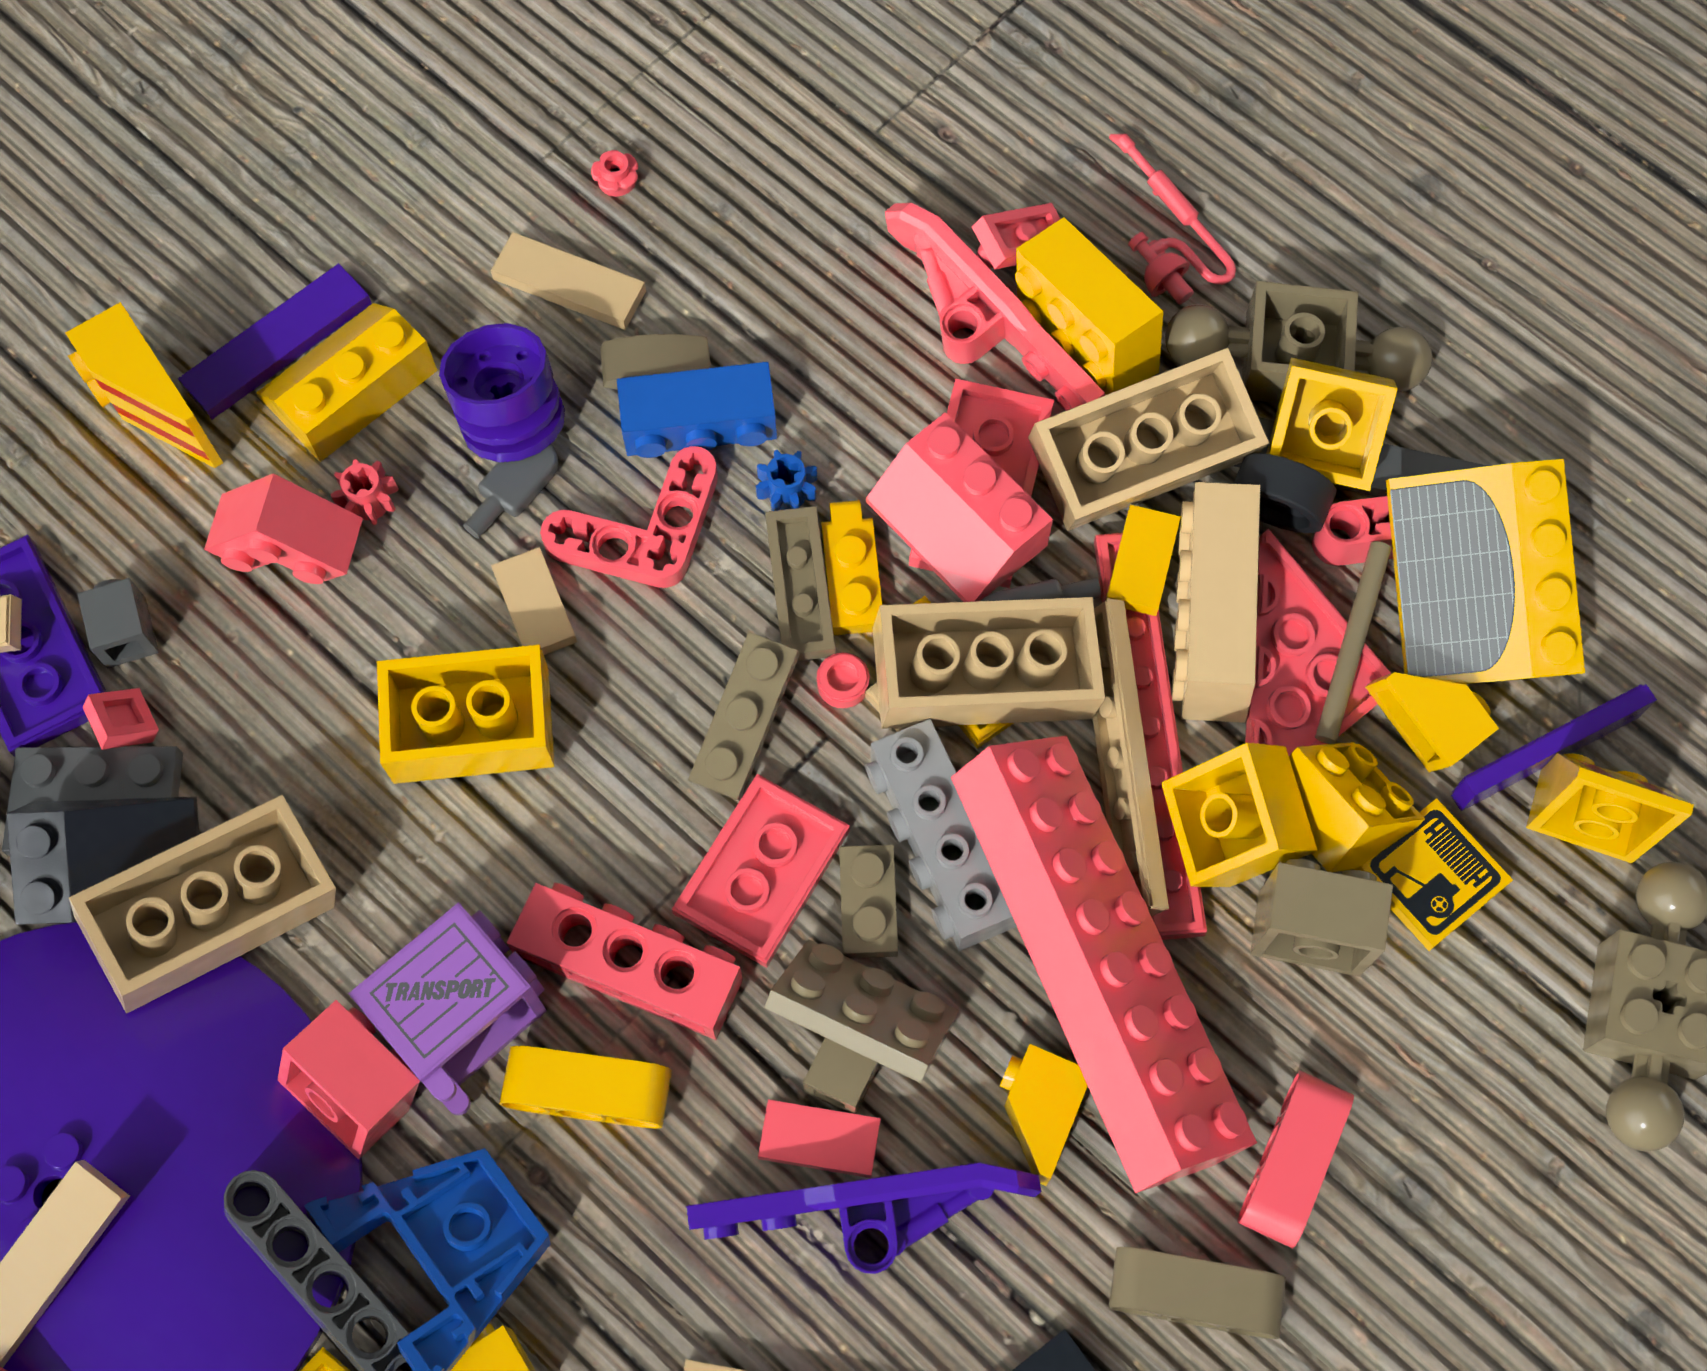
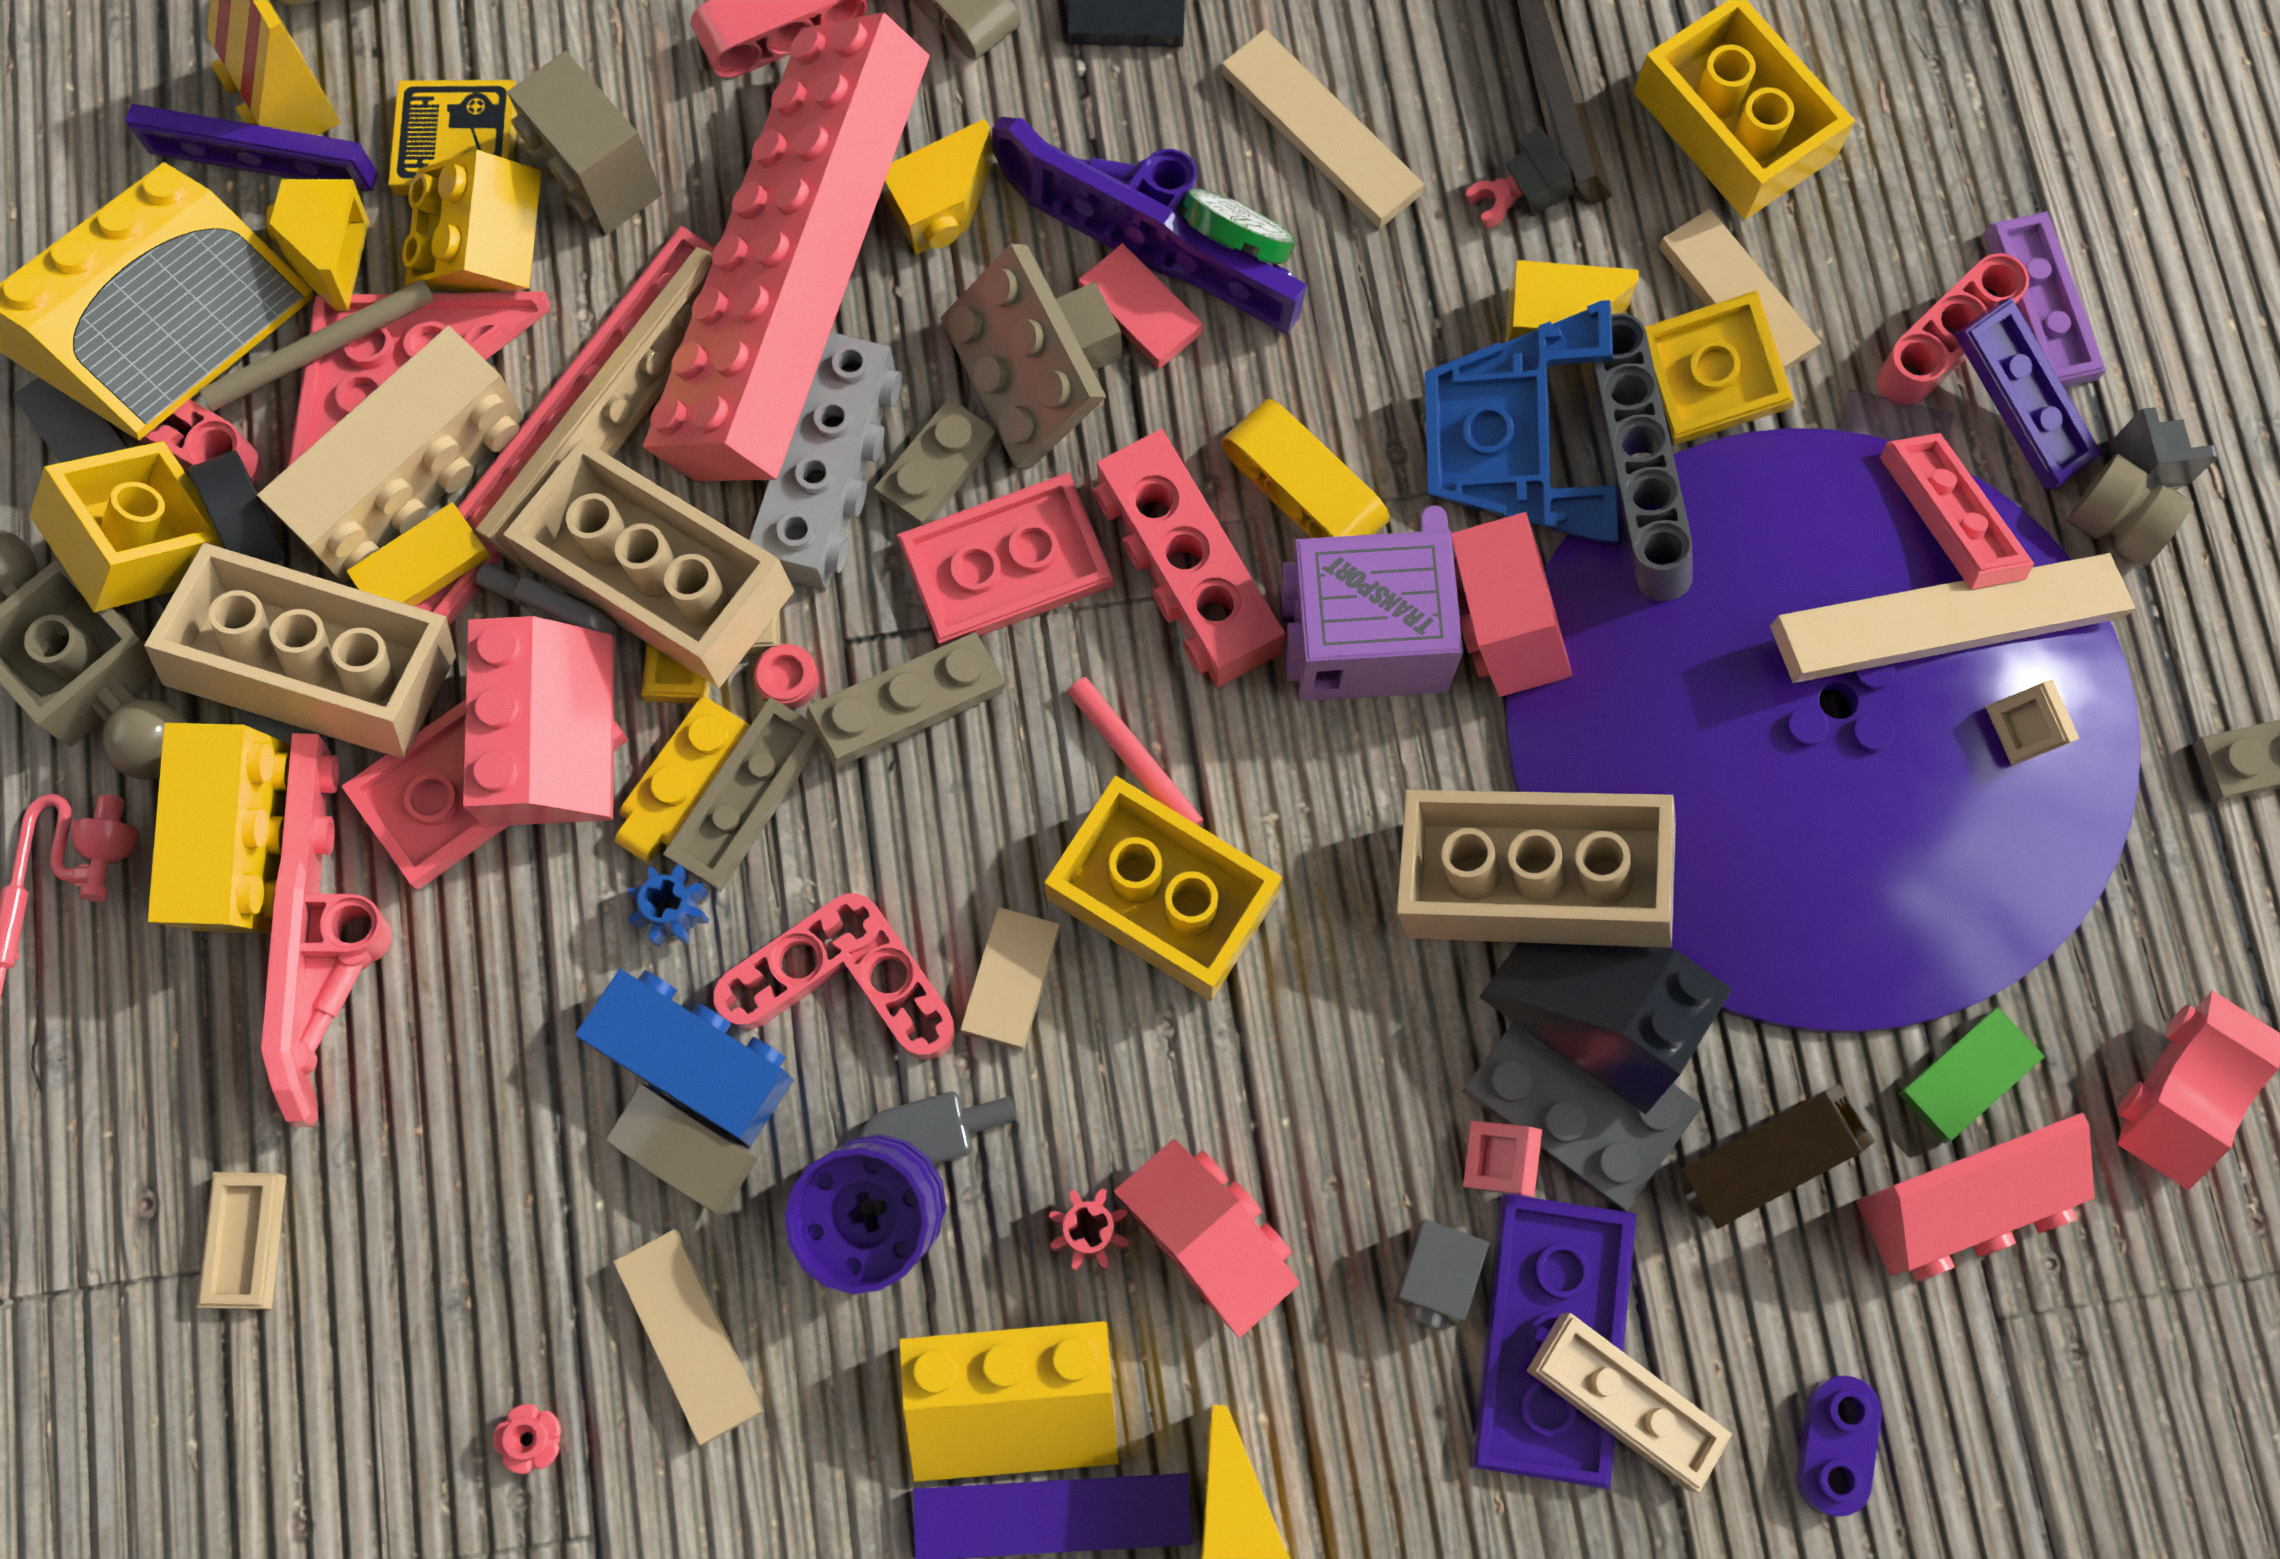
camera: 140 degrees left, 5 degrees up
(562, 802) = (1130, 749): none -> coral bar
(785, 1245) = (1236, 225): none -> green tile
(872, 151) = (241, 1241): none -> tan tile
(1007, 230) = (204, 963): coral tile -> none
(1238, 815) = (567, 264): yellow brick -> none

